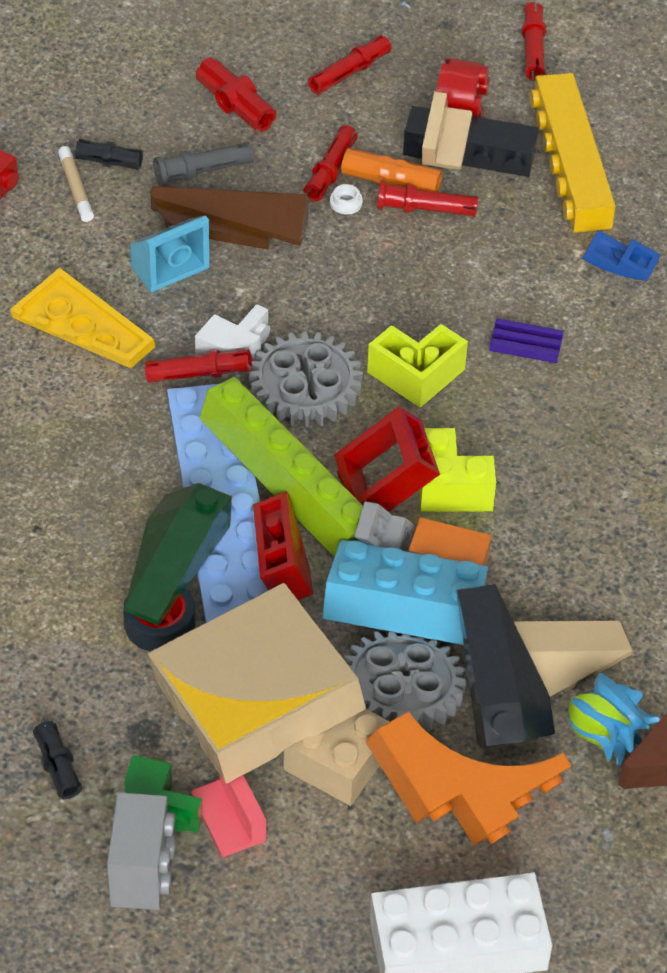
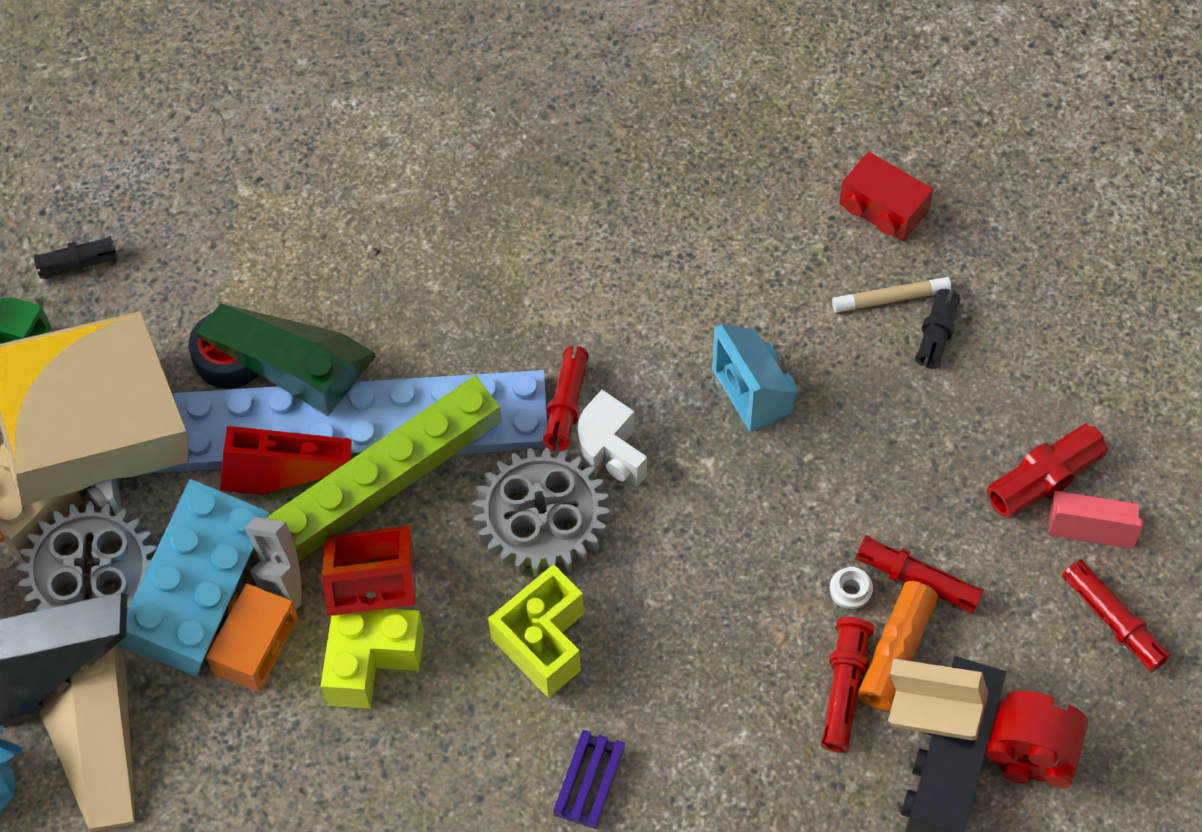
camera: 100 degrees right, 10 degrees up
(82, 318) = (667, 287): yellow wing -> none
(188, 164) = (915, 410): dark grey pin -> none
(236, 216) = (814, 452): reddish brown wedge -> none
(272, 73) = (1095, 519): none -> coral panel

